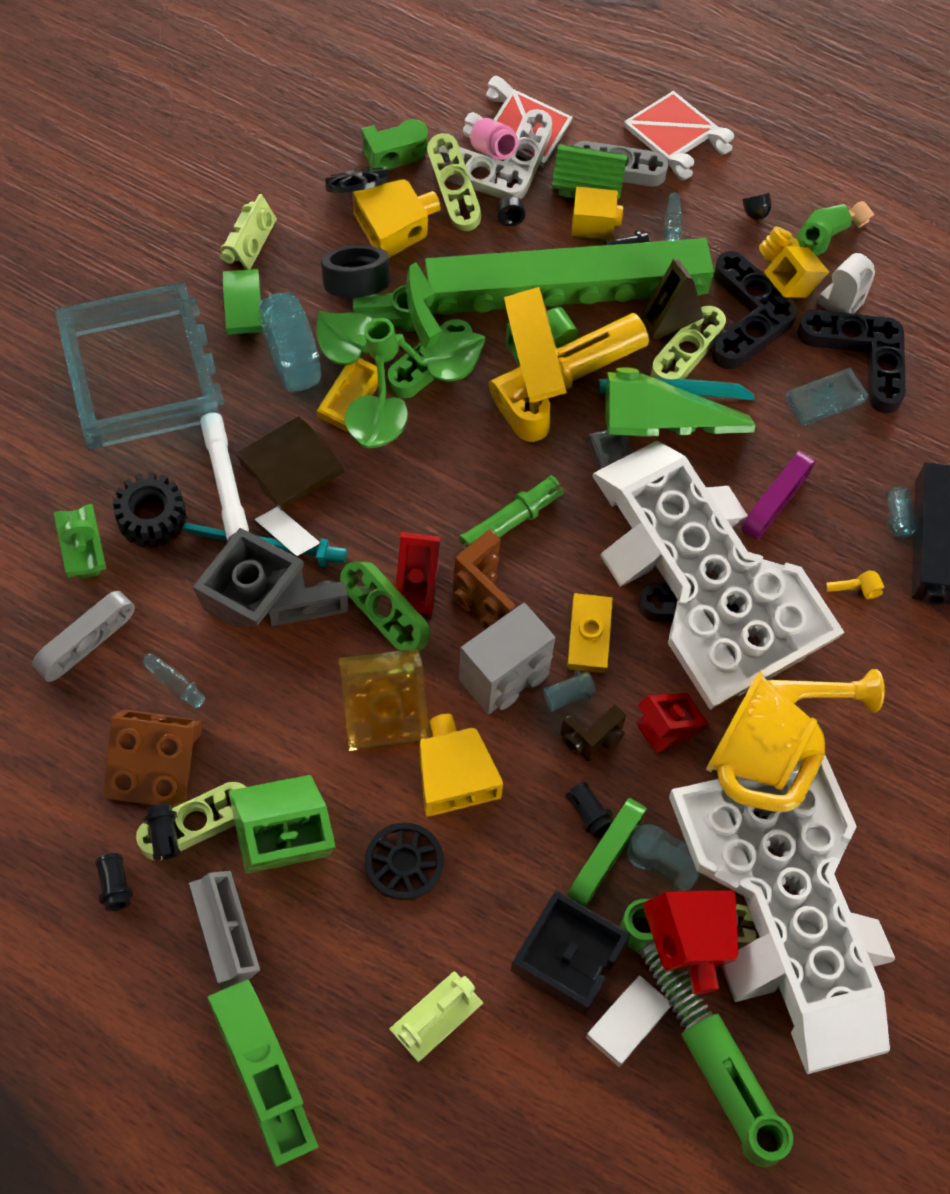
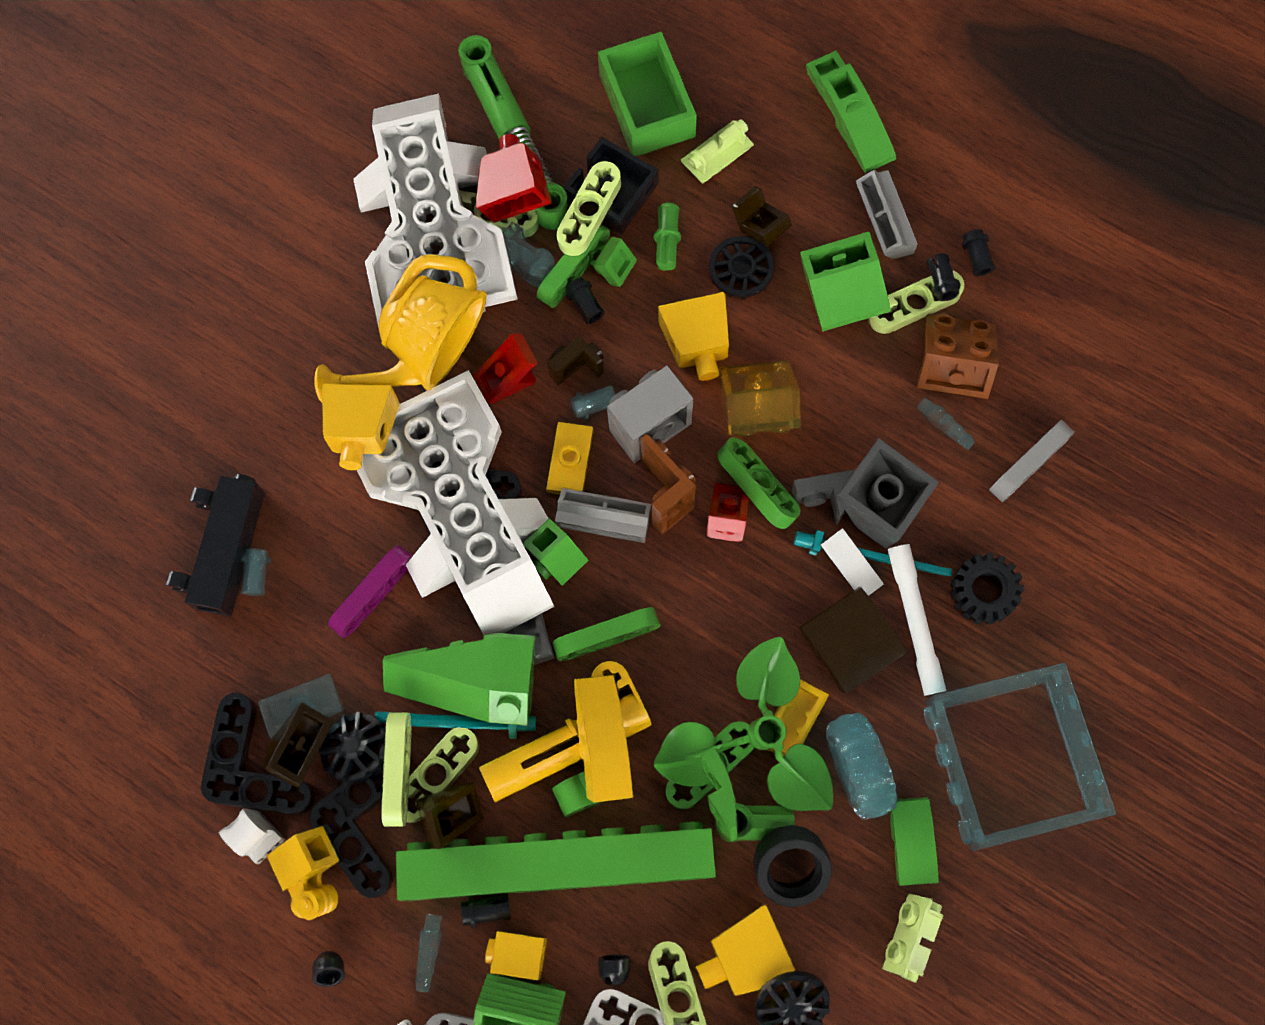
camera: 170 degrees left, 10 degrees up
(80, 542) = (1050, 549): bright green hips -> none
(380, 915) = (759, 218): none -> dark brown bracket
(496, 892) = (667, 236): none -> bright green axle
(523, 507) = (623, 584): bright green pin -> none
(533, 1079) = (647, 94): none -> bright green piece
(537, 460) = (606, 634): none -> bright green beam
(549, 570) = (603, 515): none -> light grey piece
(558, 853) = (614, 261): none -> bright green tile
(596, 524) = (554, 553): none -> bright green brick
(602, 914) = (591, 223): none -> yellowish green beam
(628, 1021) = (568, 140): white slope -> none
(725, 335) = (396, 769): none -> yellowish green beam
(768, 363) = (353, 747): none -> black wheel
(823, 349) = (297, 744): none -> dark brown slope
(827, 631) = (357, 420): none -> yellow torso
(830, 221) = (264, 928): bright green arm -> none
(868, 582) = (304, 502): yellow hand -> none

